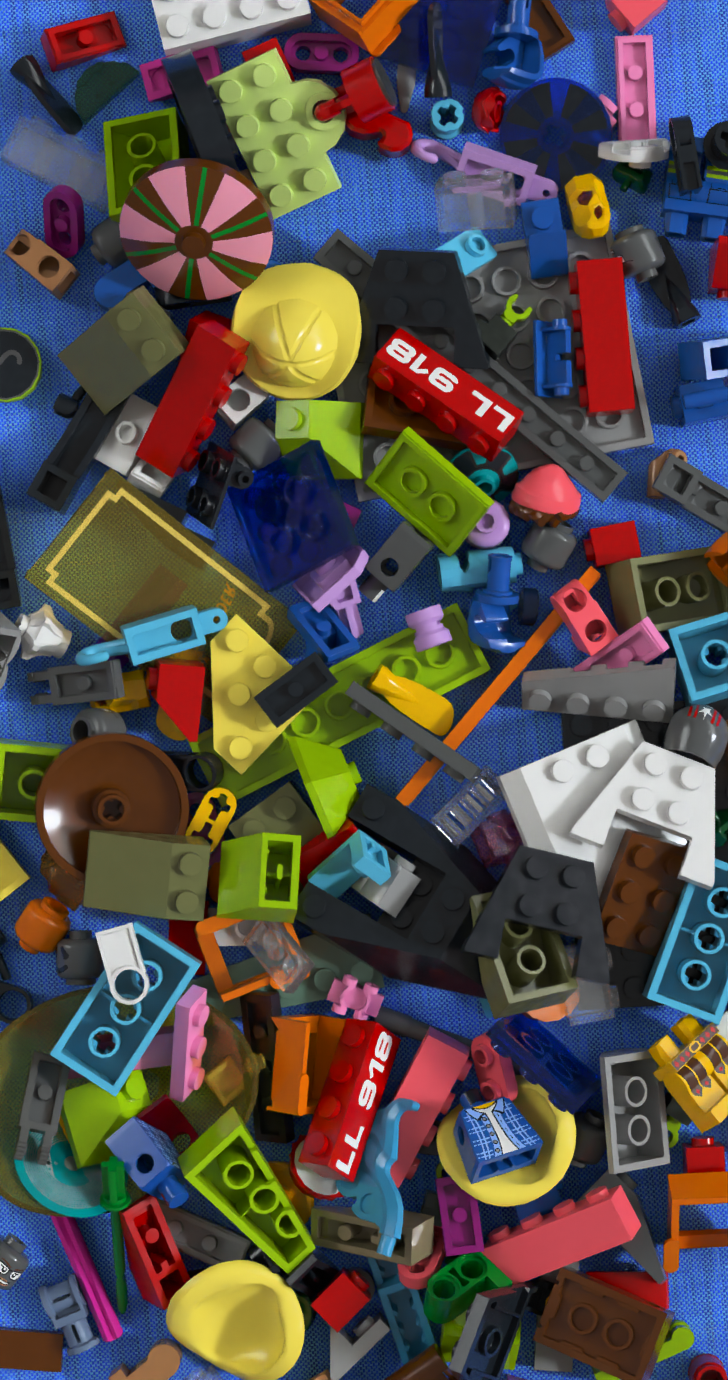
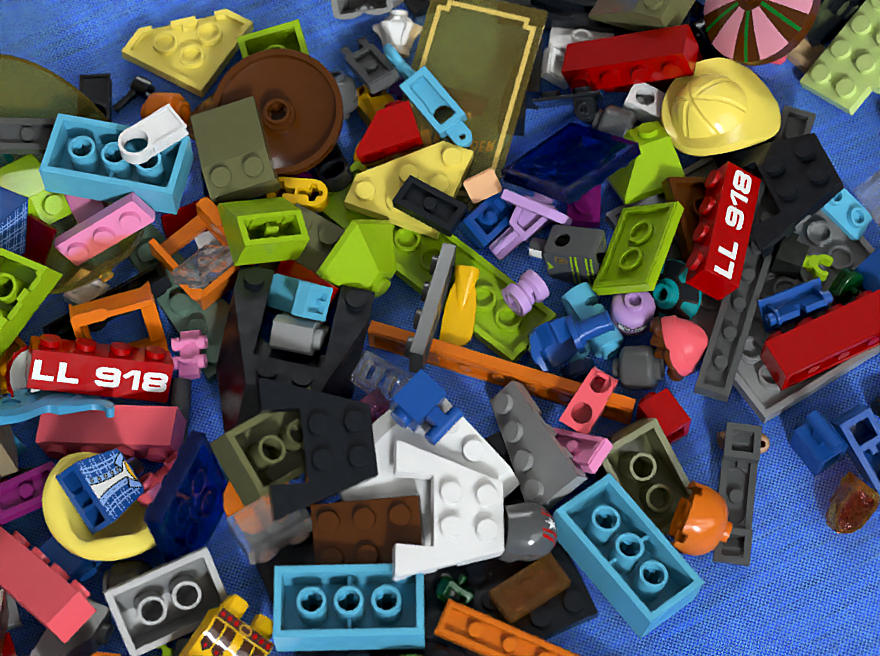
camera: 70 degrees right, 25 degrees down
(279, 620) = (482, 186): none -> light nougat slope
(538, 792) = (420, 402): none -> blue brick
(546, 295) = (846, 285): none -> dark green piece

